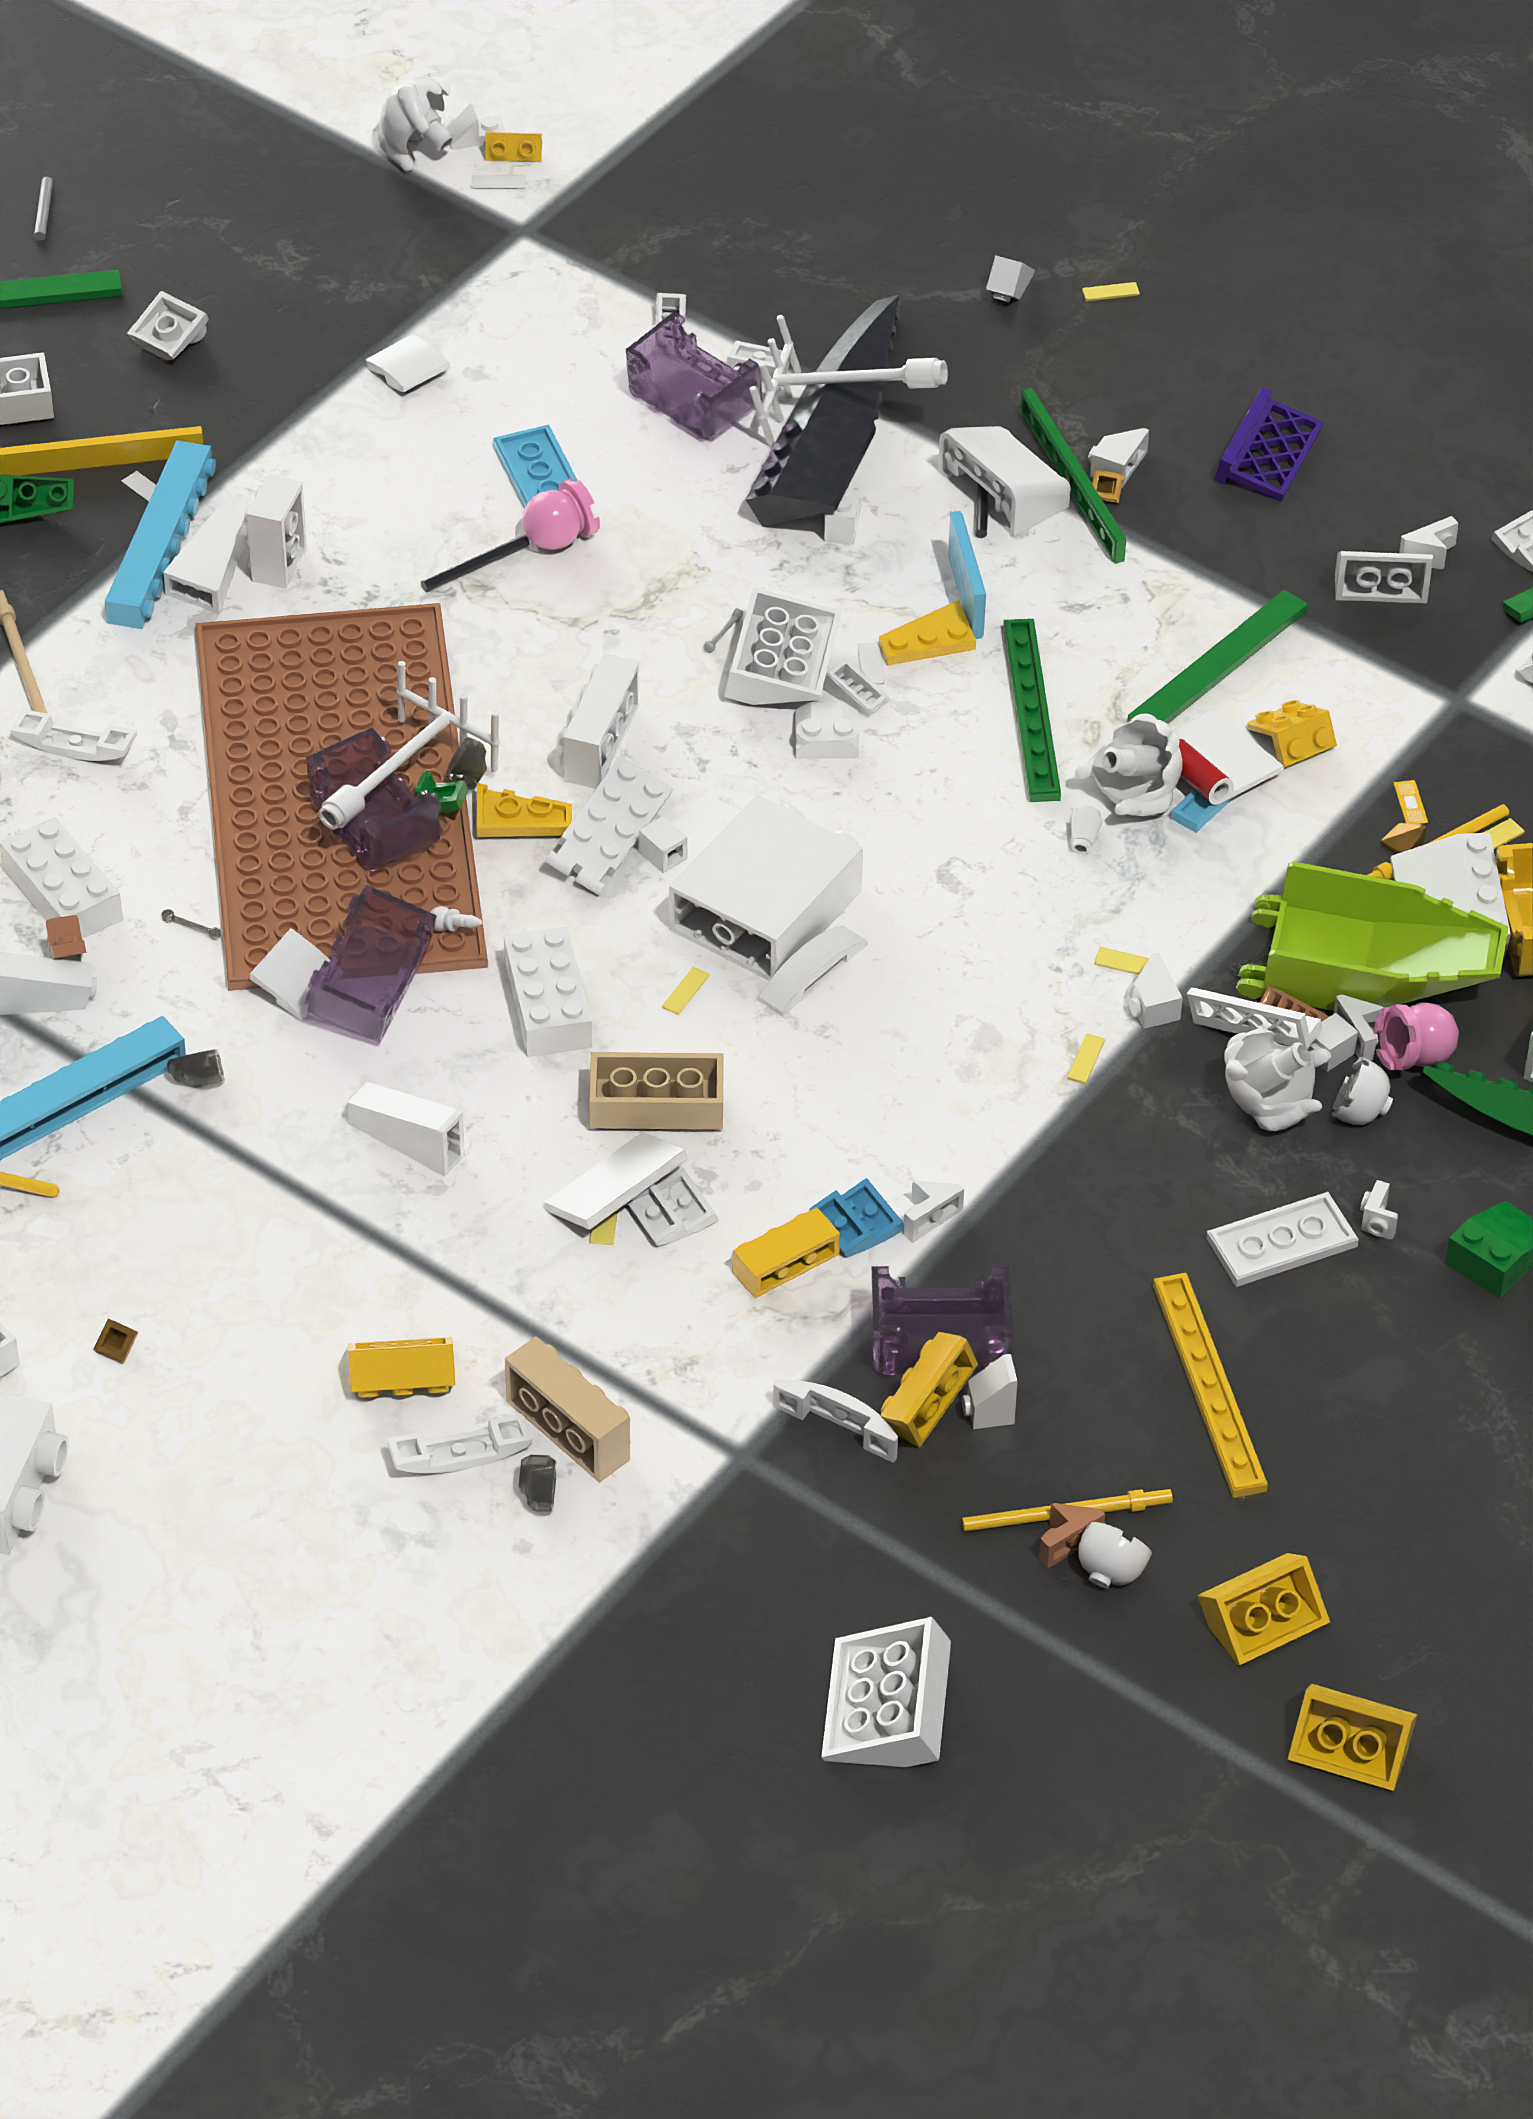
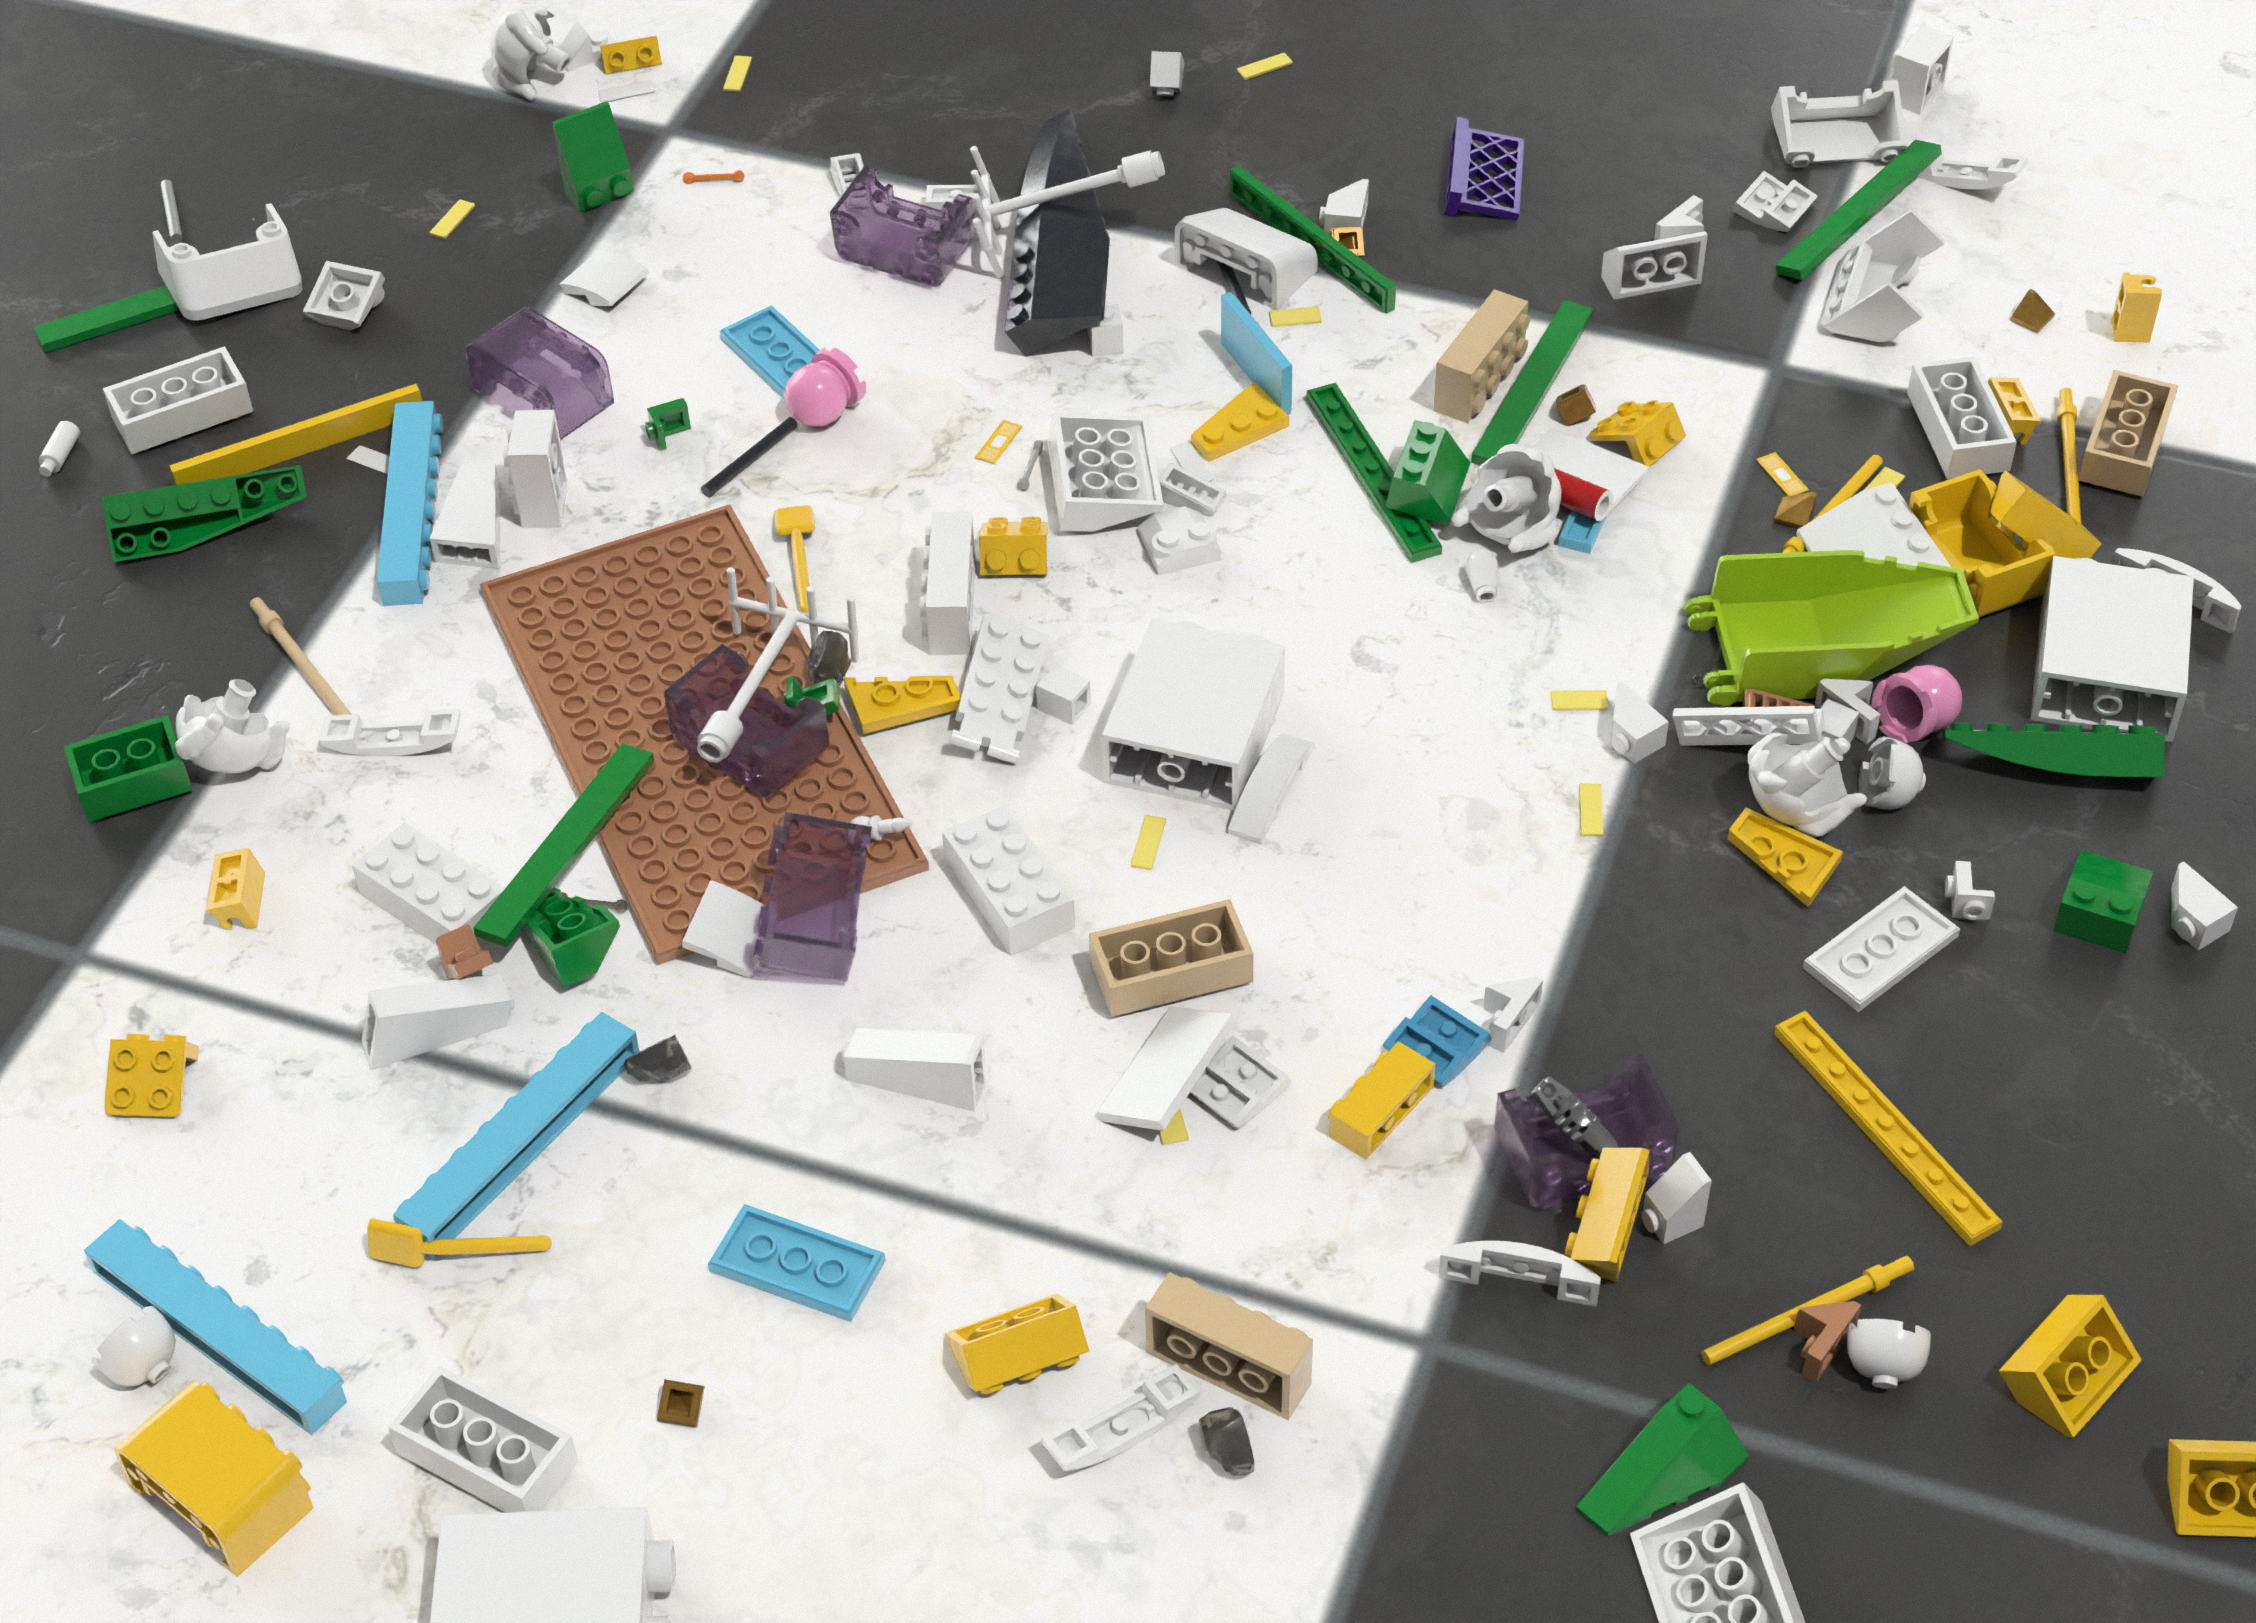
camera: 15 degrees left, 0 degrees up
(75, 286) = (232, 276): none -> white windscreen
(157, 940) = (571, 936): none -> green wedge
(183, 868) = (563, 845): none -> green tile
(250, 1258) = (797, 1262): none -> medium azure tile
(293, 273) = (452, 219): none -> light yellow window
(318, 438) = (543, 367): none -> clear purple windscreen
(412, 512) = (667, 420): none -> green bracket
(434, 245) = (592, 157): none -> green slope
(488, 632) = (794, 522): none -> yellow piece
(523, 282) = (689, 177): none -> orange hinge
(608, 187) = (737, 73): none -> light yellow window
(674, 701) = (1013, 546): none -> yellow bracket
(704, 601) = (998, 441): none -> yellow sticker
(892, 1590) = (1673, 1457): none -> green wedge
(932, 1301) = (1573, 1117): none -> dark grey hinge
(1028, 546) = (1295, 316): none -> light yellow window
(1074, 723) = (1428, 474): none -> green slope
(1173, 625) = (1481, 356): none -> tan brick
(1236, 1138) = (1785, 854): none -> yellow wing
(1247, 691) = (1575, 404): none -> pearl gold slope

